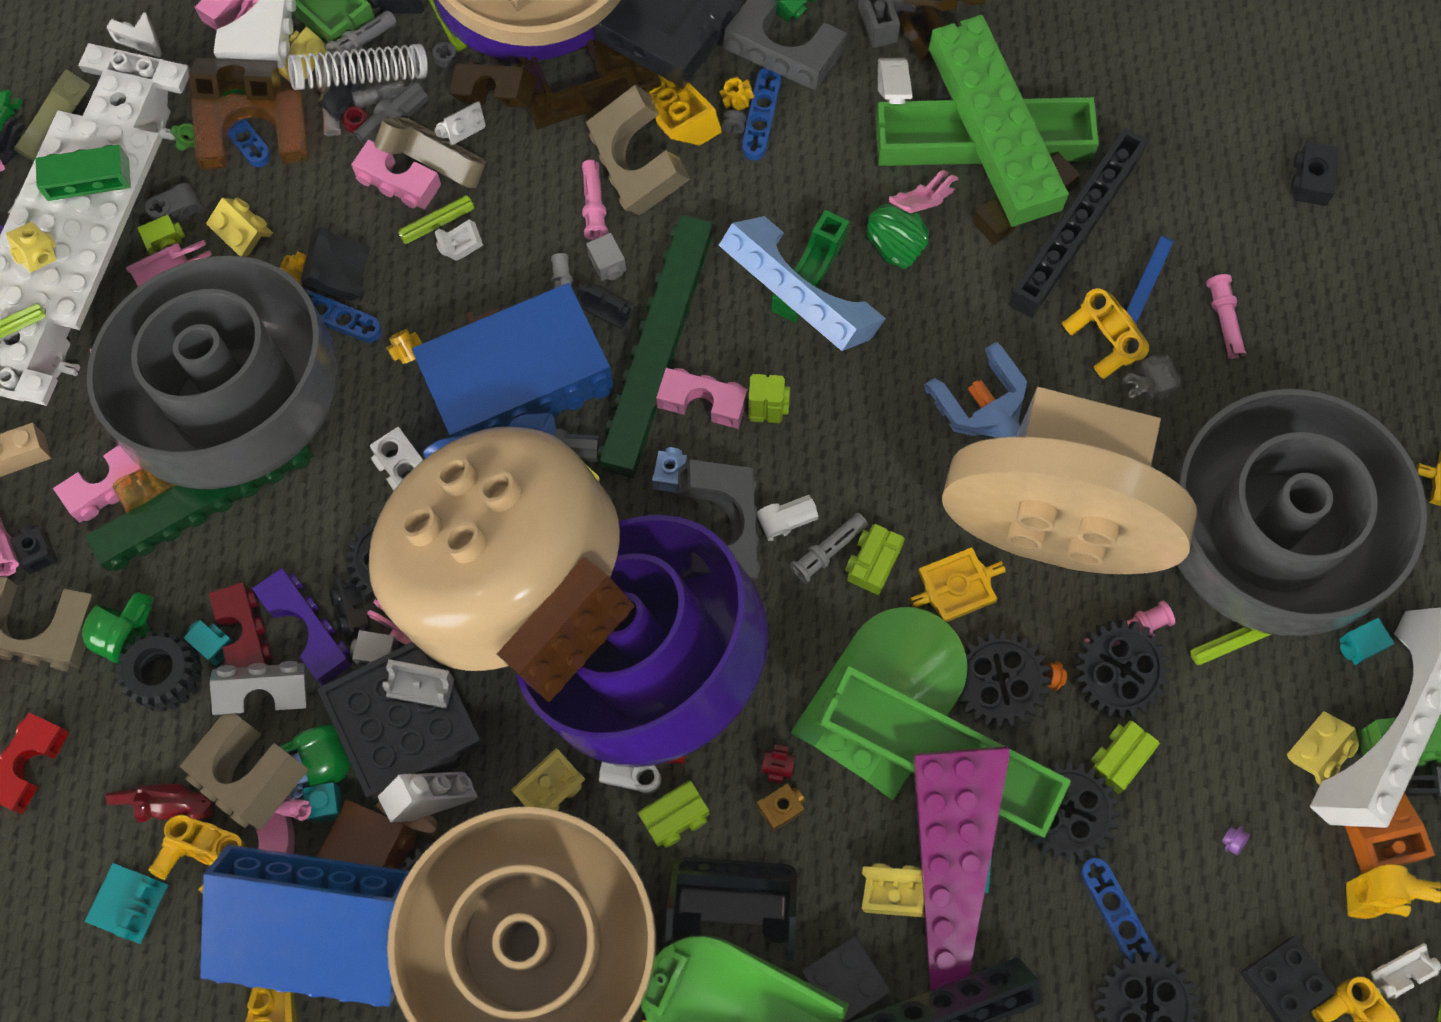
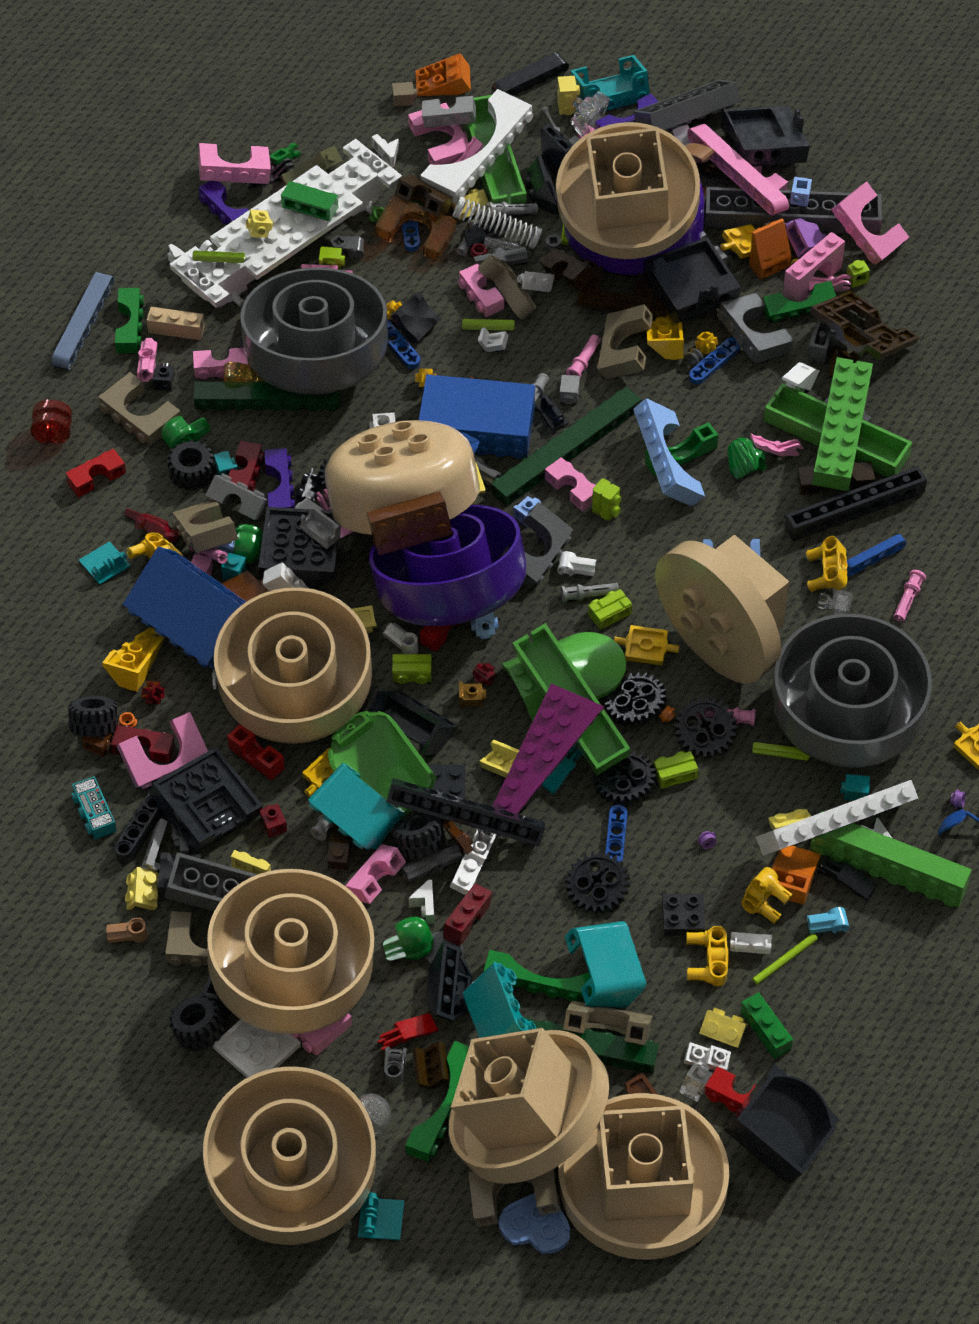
camera: 30 degrees right, 15 degrees down
(238, 225) = (376, 272): light yellow bracket -> none

